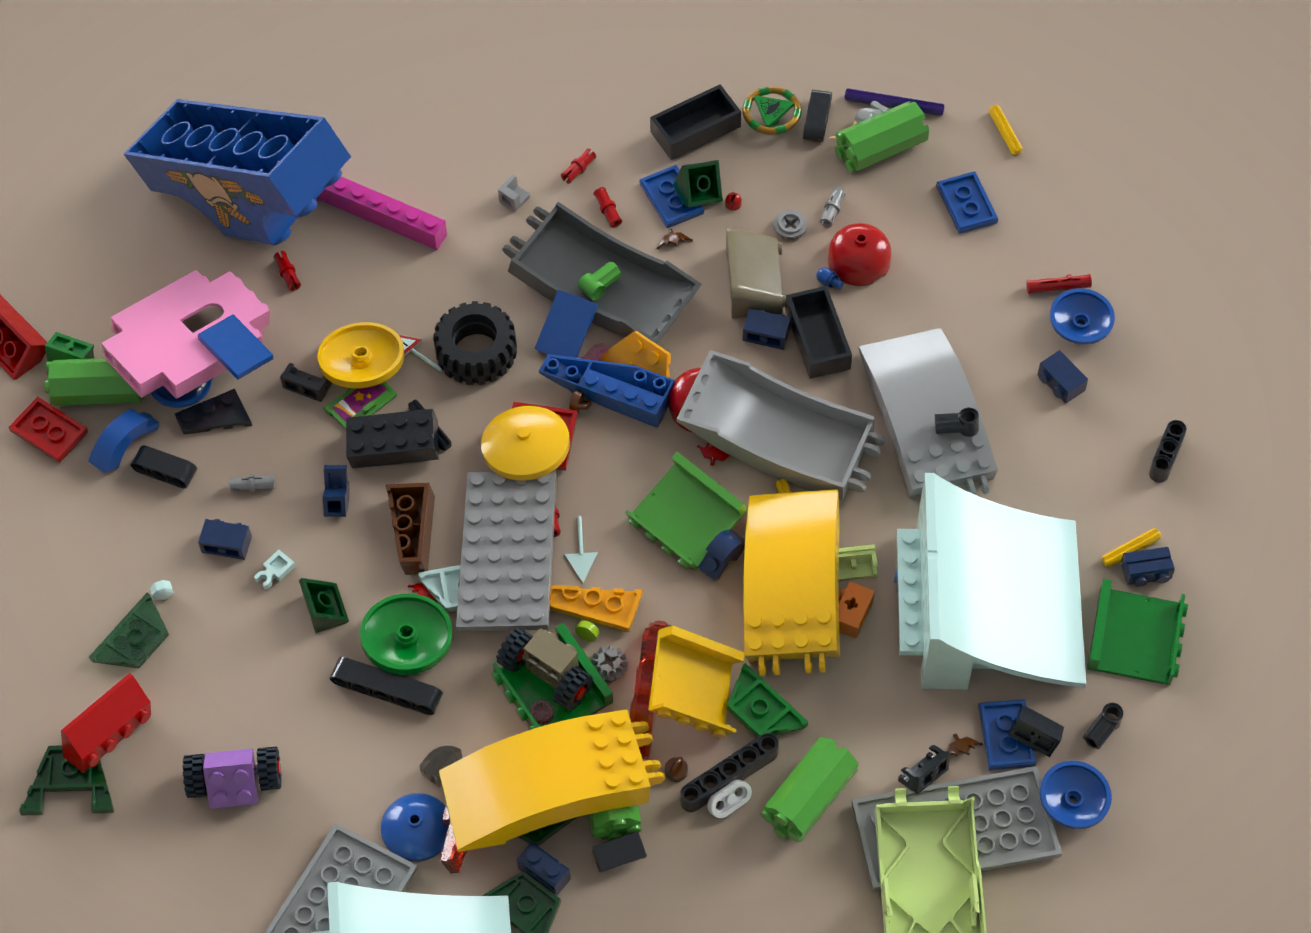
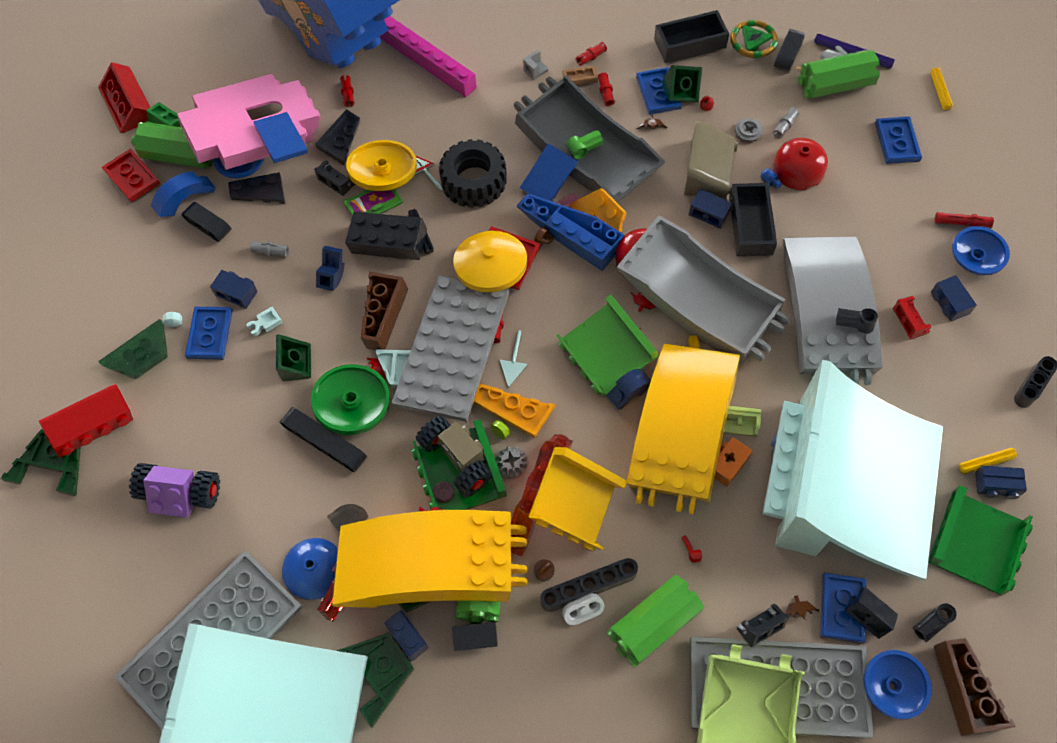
camera: 15 degrees right, 5 degrees up
(209, 596) = (208, 333): none -> blue tile
(296, 330) = (339, 137): none -> black wing
(573, 195) = (582, 75): none -> medium nougat plate
(762, 707) = (631, 532): green wing -> none
(836, 717) = (694, 555): none -> red hand
(1020, 409) = (910, 318): none -> red hinge
(1150, 784) = (969, 690): none -> reddish brown wedge

